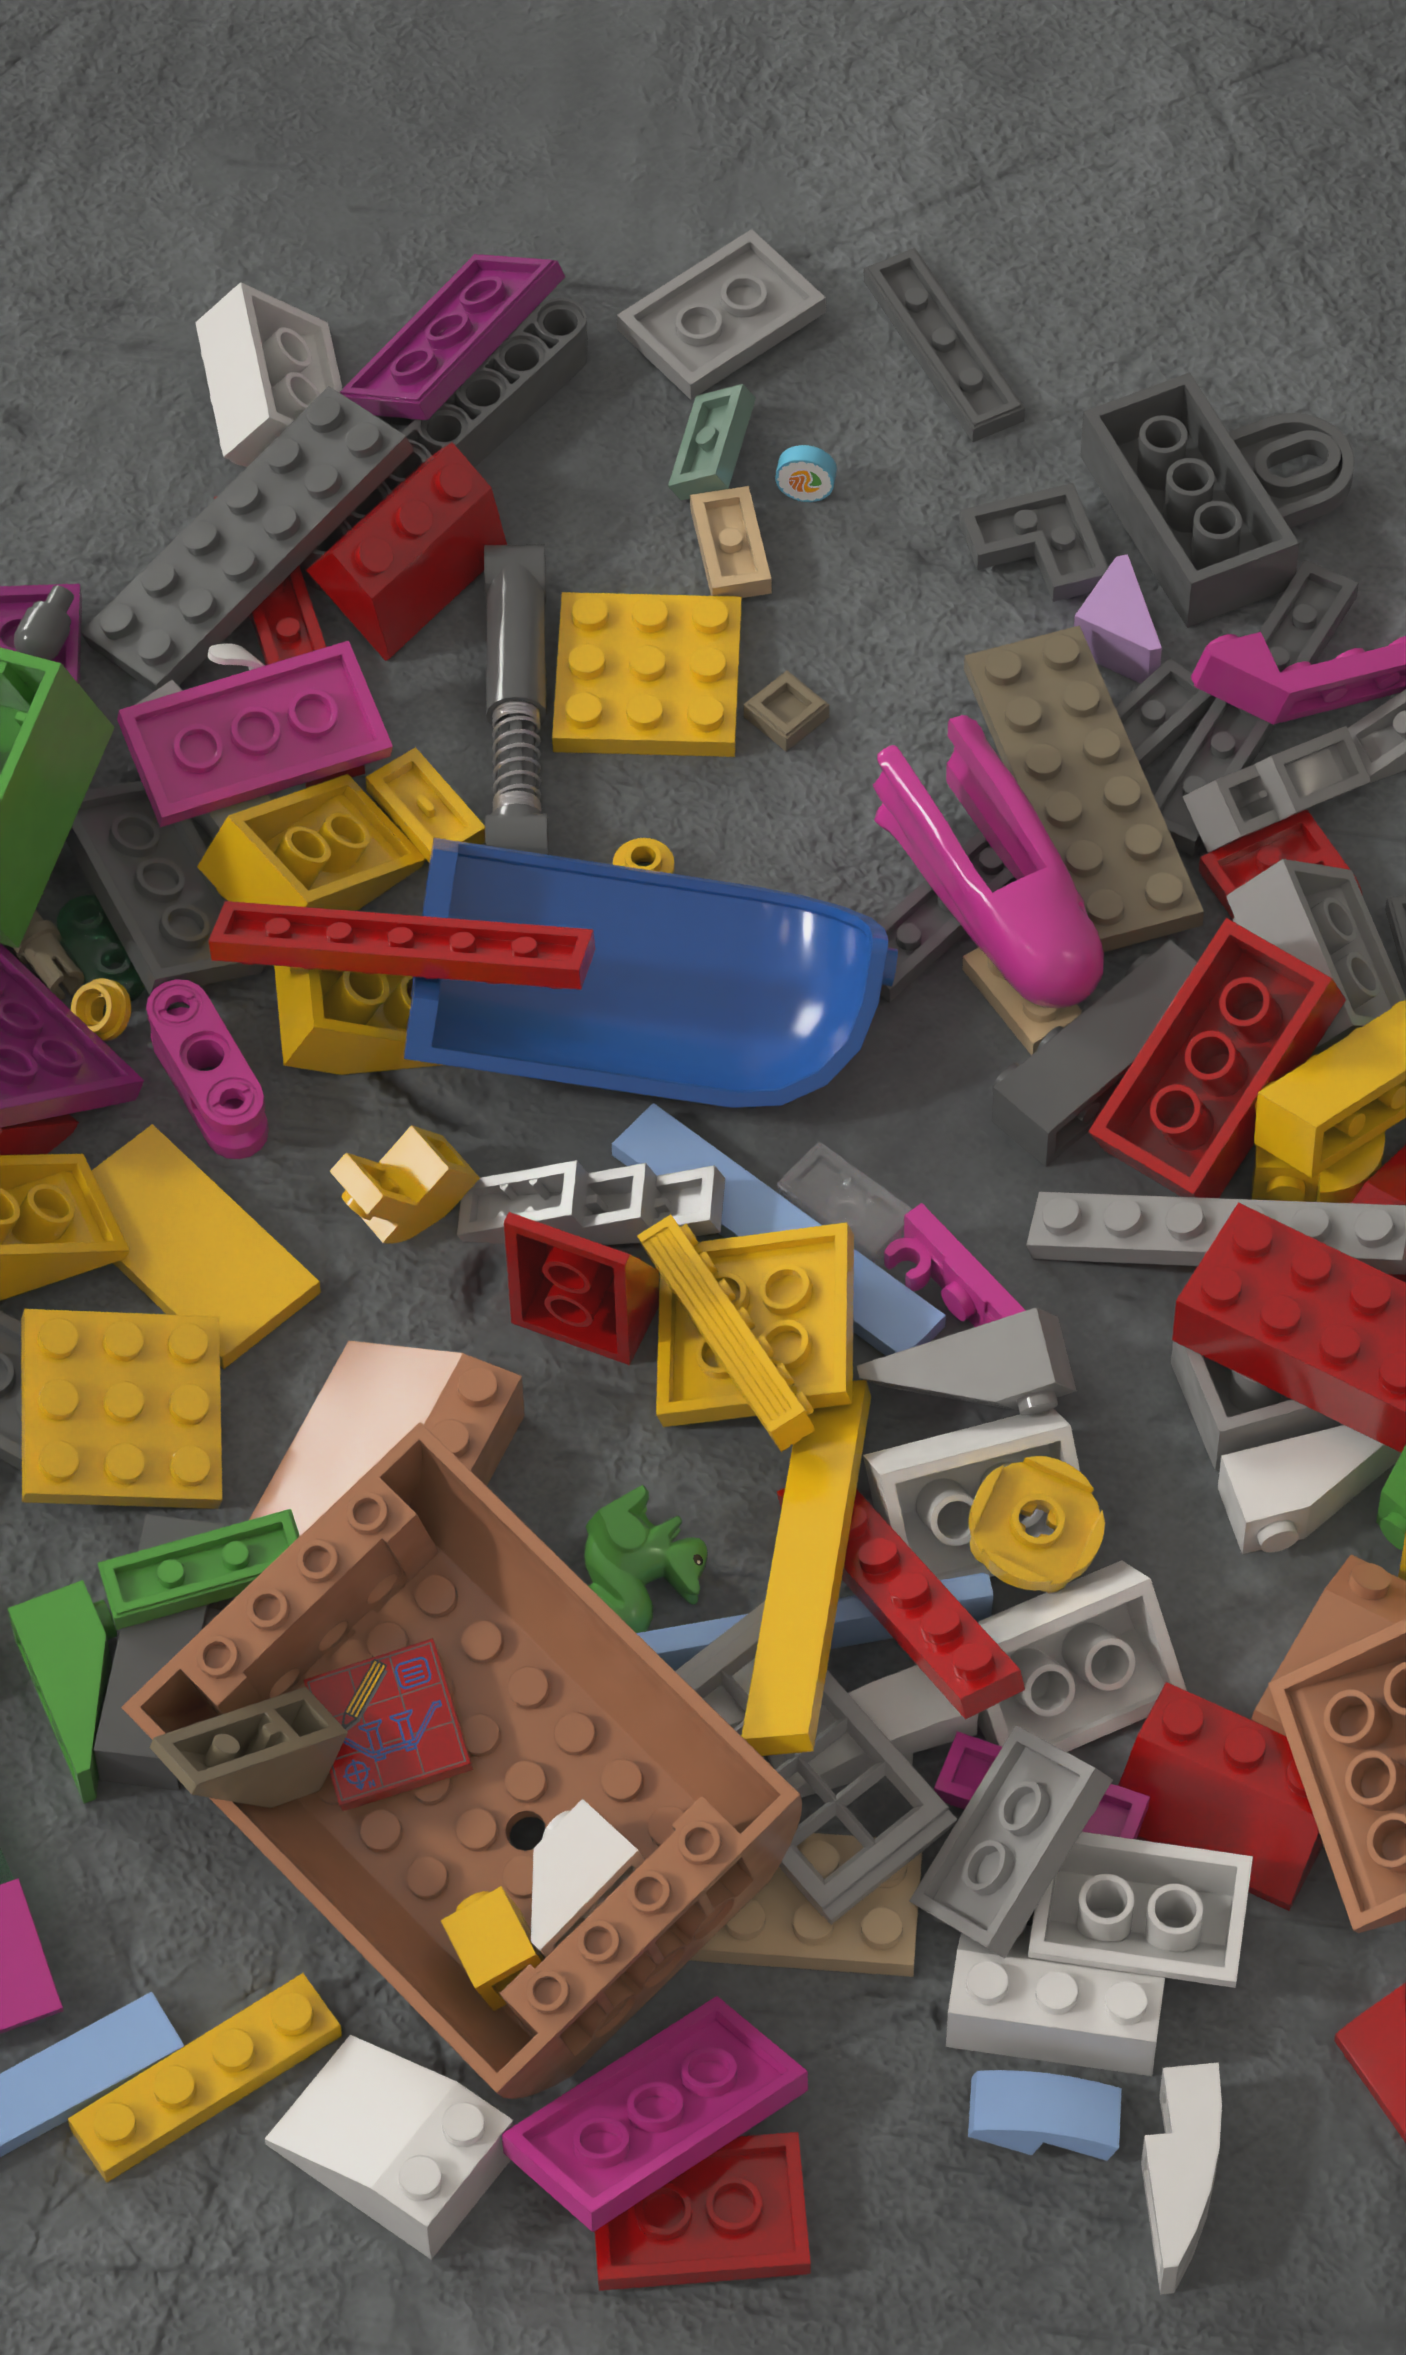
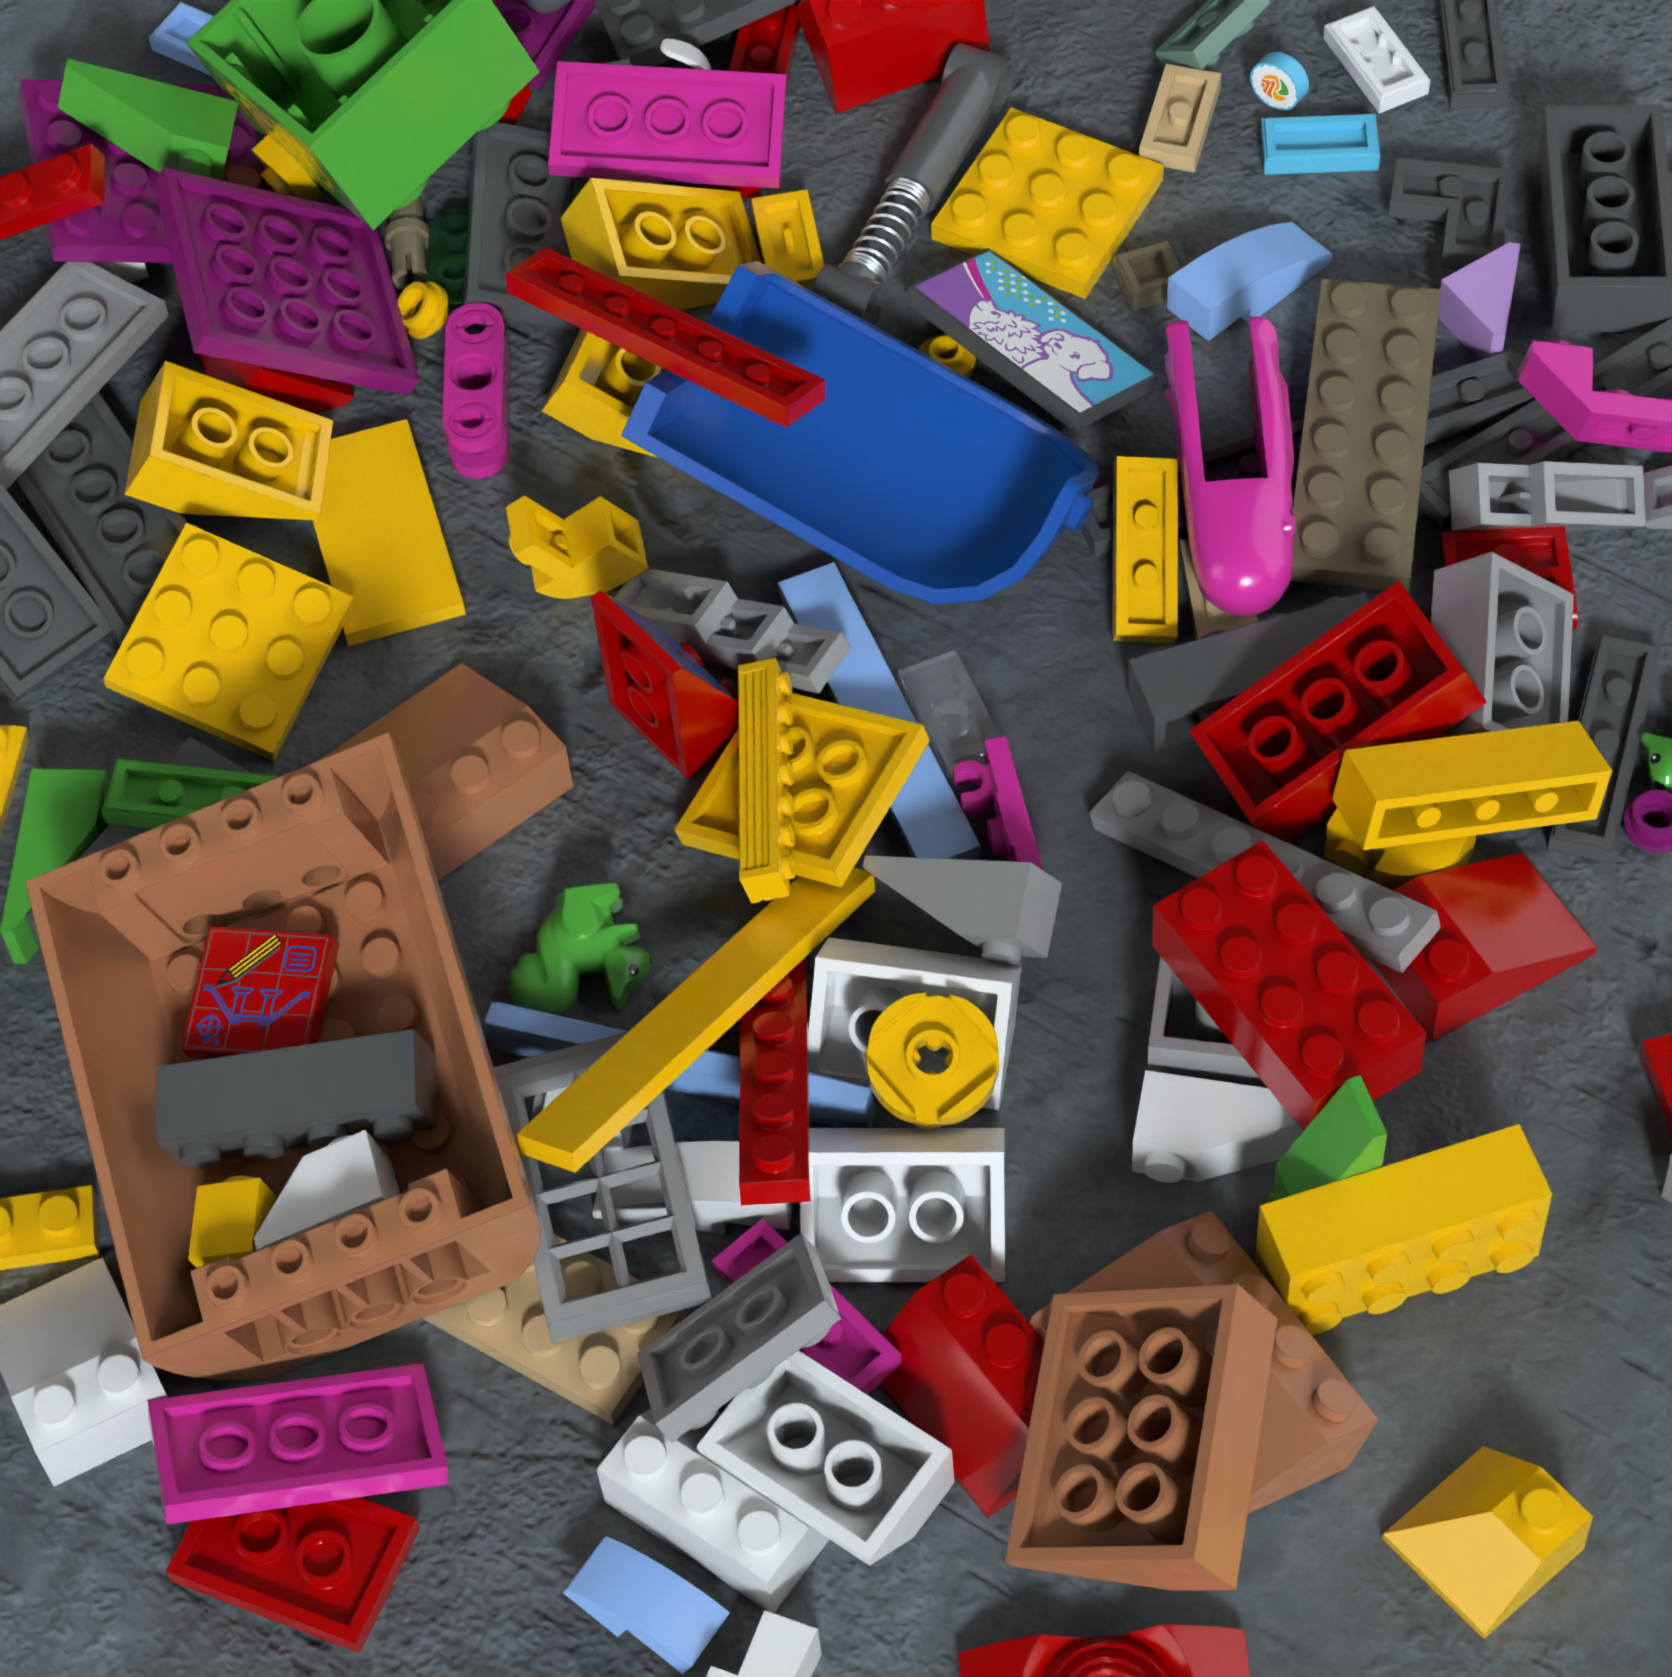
camera: 30 degrees right, 0 degrees up
(256, 1752) = (109, 968): dark tan slope -> none
(484, 1803) = (295, 1098): none -> dark grey brick
(716, 815) = (1031, 340): none -> tile
(873, 522) = (1320, 144): none -> medium azure tile
(882, 680) = (1244, 277): none -> light blue slope
(883, 418) = (1376, 59): none -> white plate
(945, 978) = (1145, 550): none -> yellow plate

